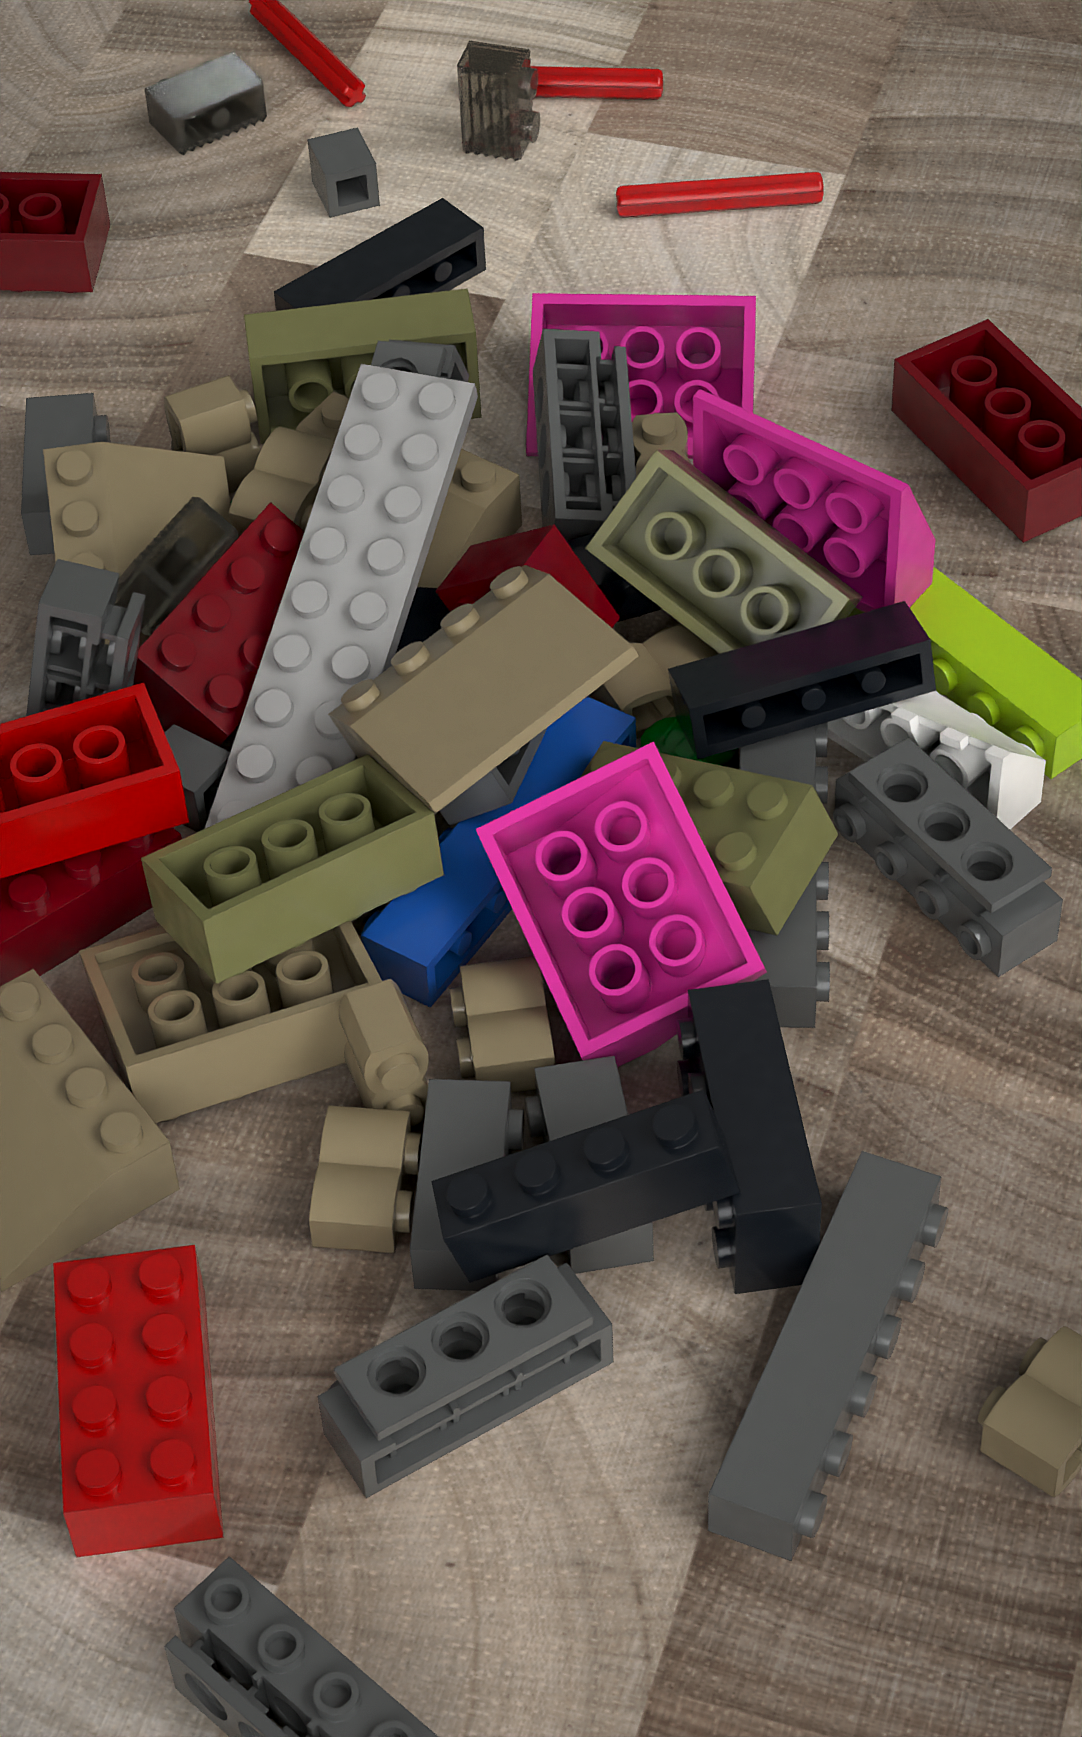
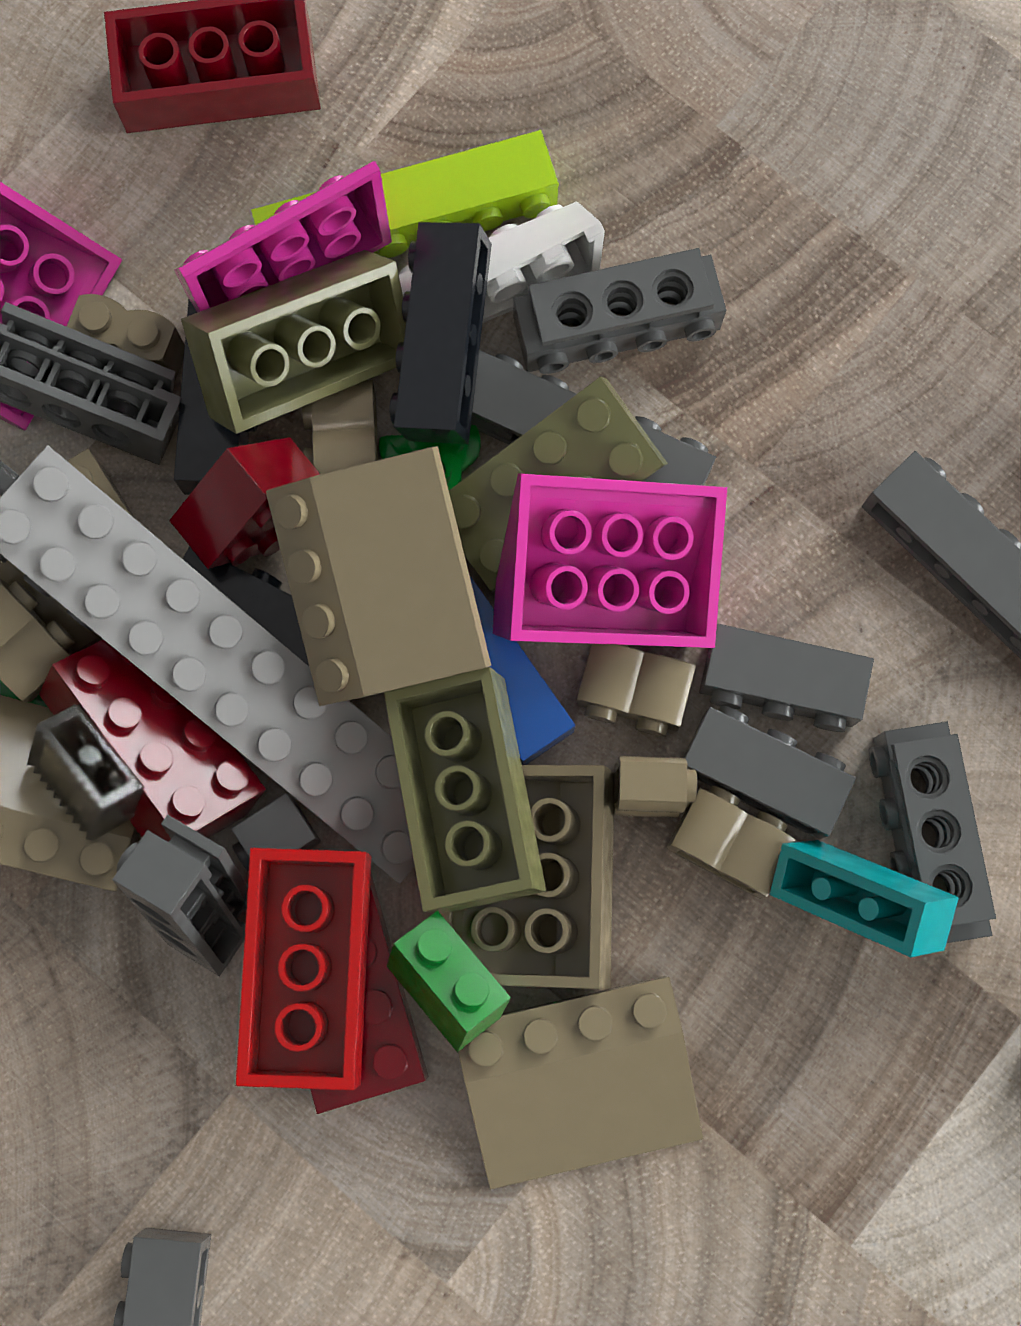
camera: 70 degrees left, 30 degrees up
(76, 920) = (447, 981): none -> green brick
(136, 1402) = (863, 1073): red brick -> none
(342, 1286) = (864, 897): none -> teal brick
(585, 1186) = (878, 697): black brick -> none
(740, 1061) = (832, 560): black brick -> none

